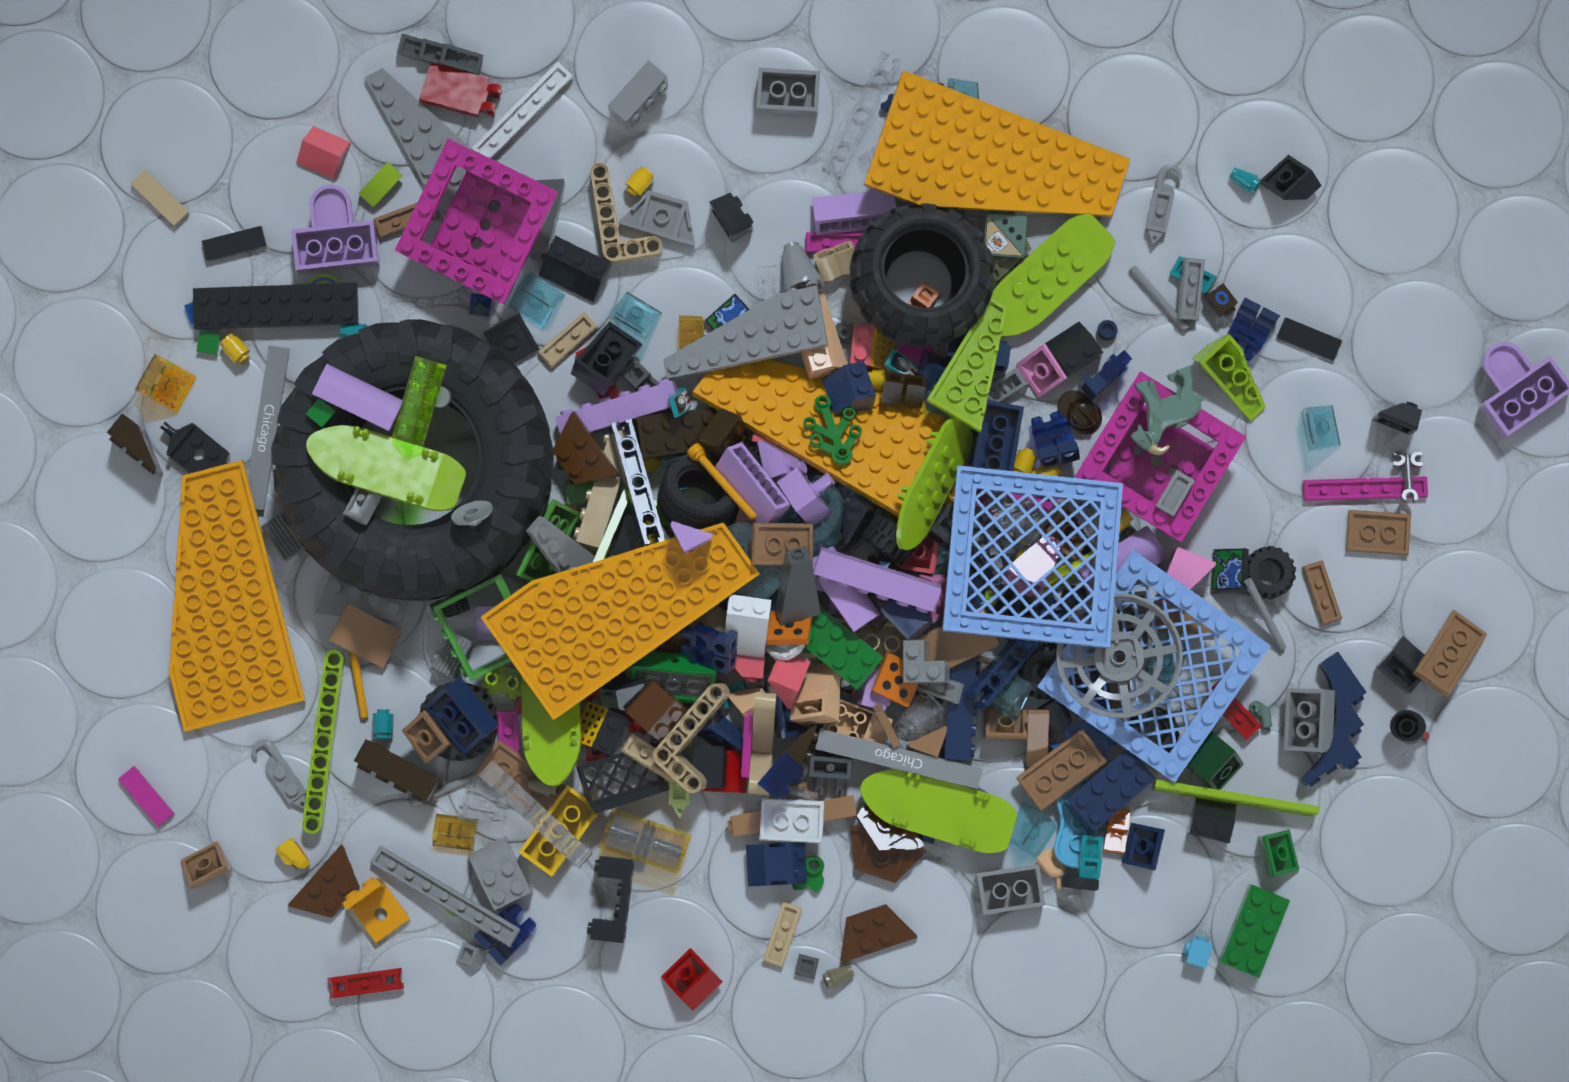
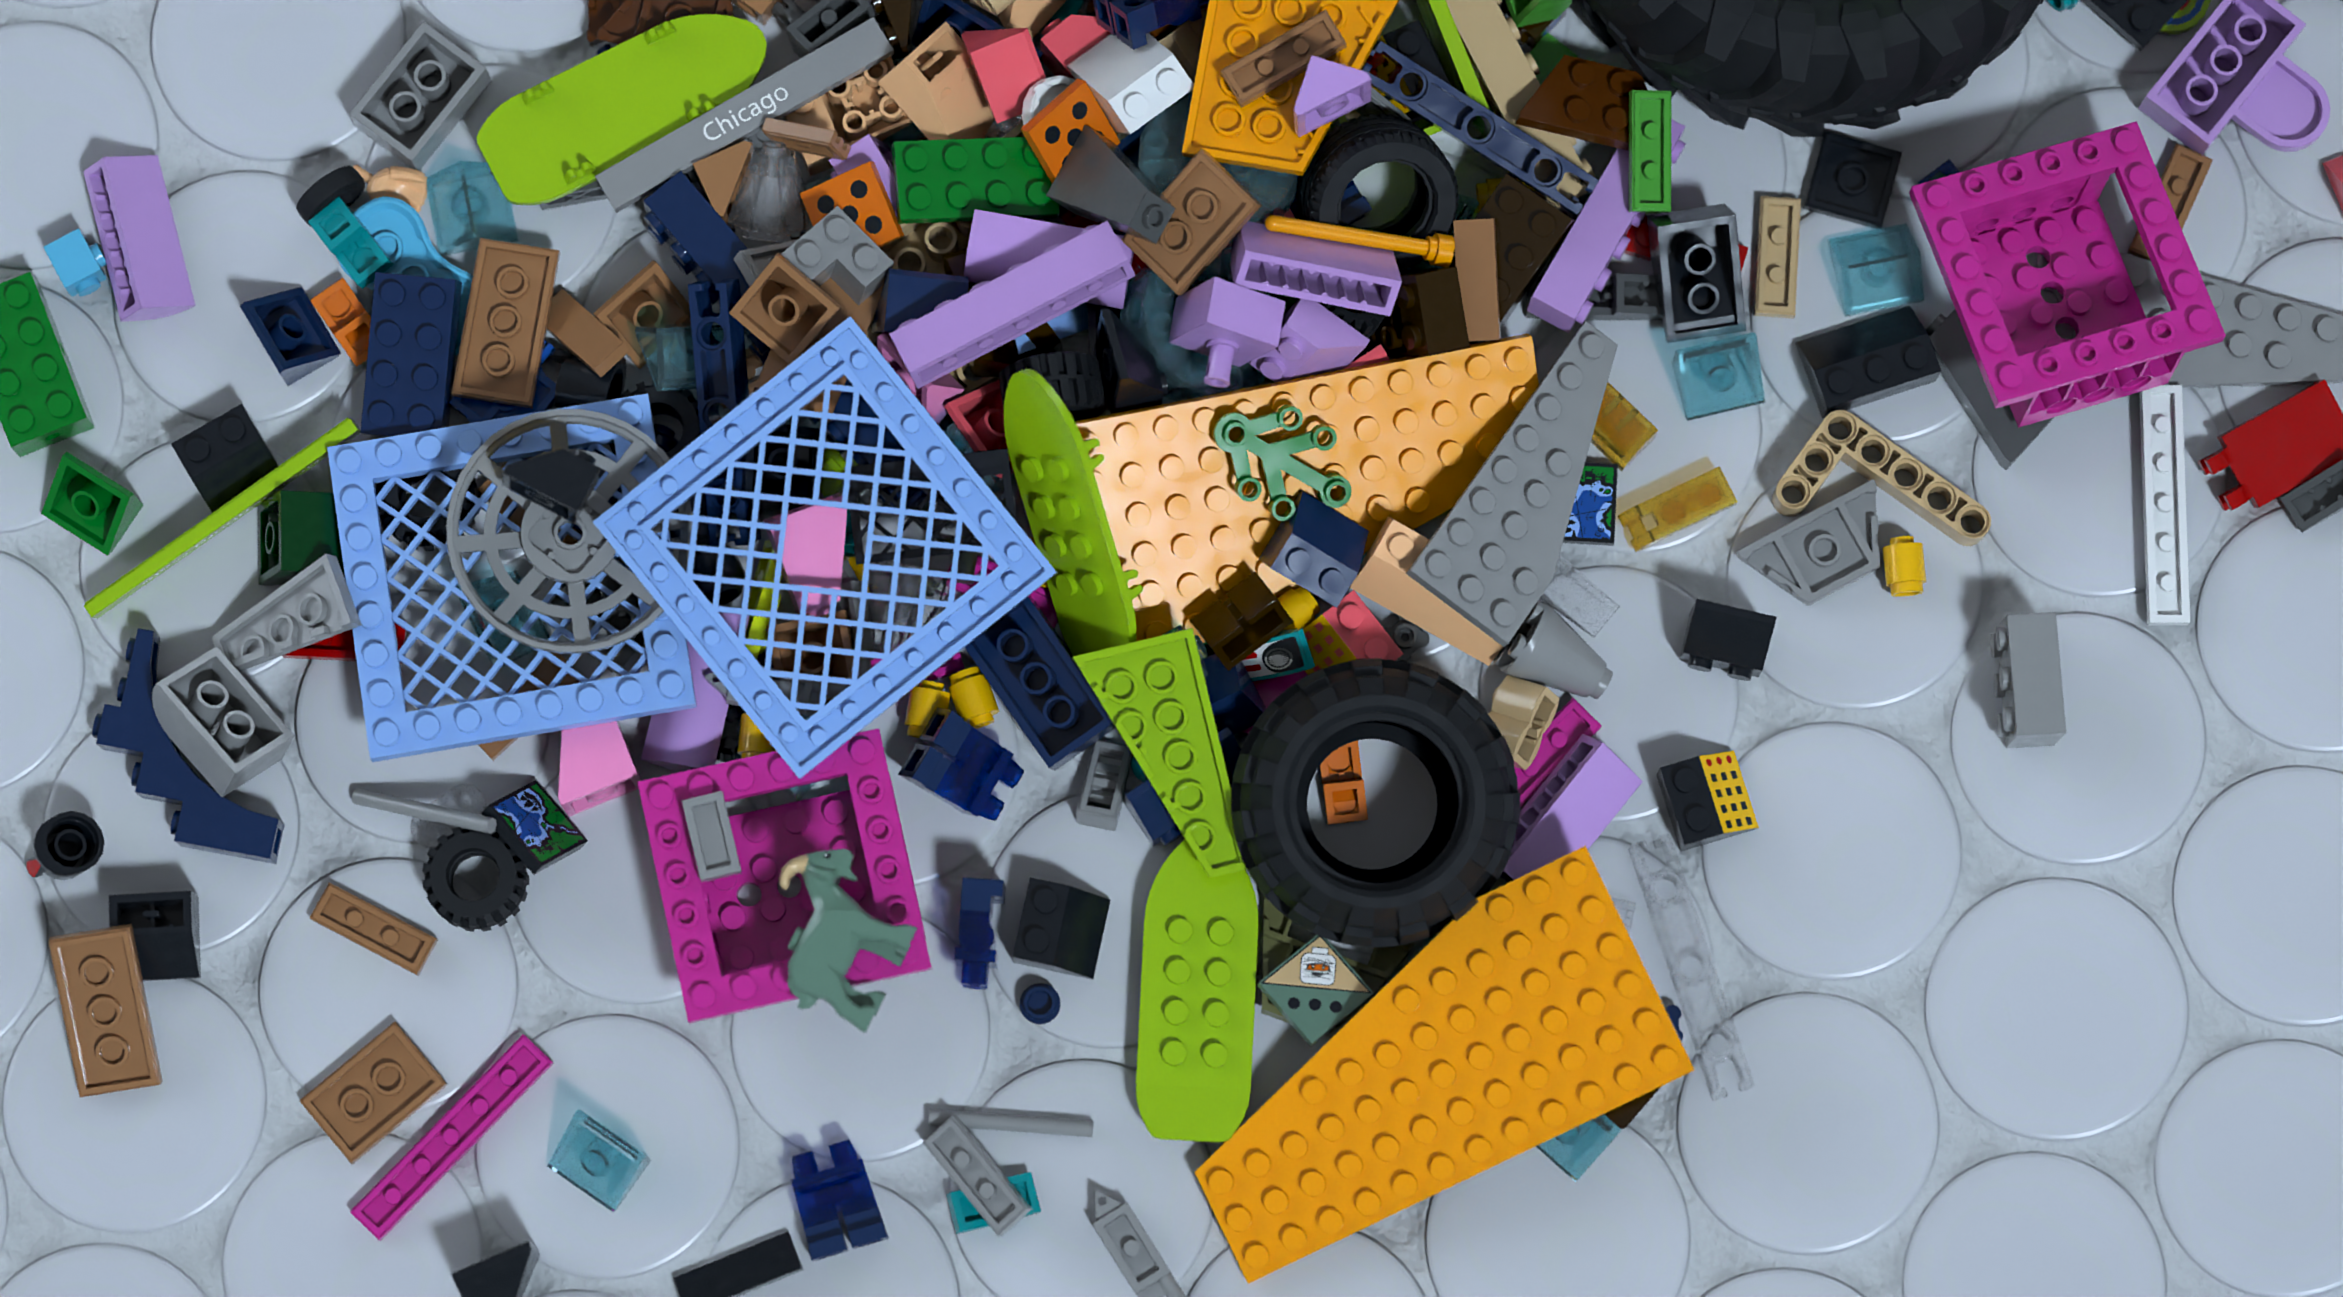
camera: 135 degrees right, 5 degrees down
(380, 184) = (2252, 214): lime slope -> none
(580, 416) = (1649, 151): none -> bright green tile
(679, 402) = (1533, 299): slope -> none
(688, 570) = (1282, 58): none -> medium nougat tile
(691, 430) = (1478, 277): none -> medium nougat tile
(698, 282) = (1679, 508): none -> clear yellow plate
(788, 91) = (1827, 894): light grey brick -> none
(795, 168) = (1706, 799): none -> black slope
(961, 661) = (785, 309): none -> medium nougat slope
(1042, 371) = (1075, 853): bright pink slope -> none
(1080, 411) = (965, 850): dark brown piece -> none
(1110, 672) = (555, 481): none -> black slope
(1165, 939) = (138, 237): none -> lavender brick
(1221, 301) = (916, 1204): dark brown brick -> none
(1227, 368) = (806, 1110): lime wedge -> none
(1245, 731) = (292, 617): none -> light grey wing
(1262, 711) = (299, 680): sand green arm -> none
(1408, 462) = (426, 1234): flat silver bar -> none

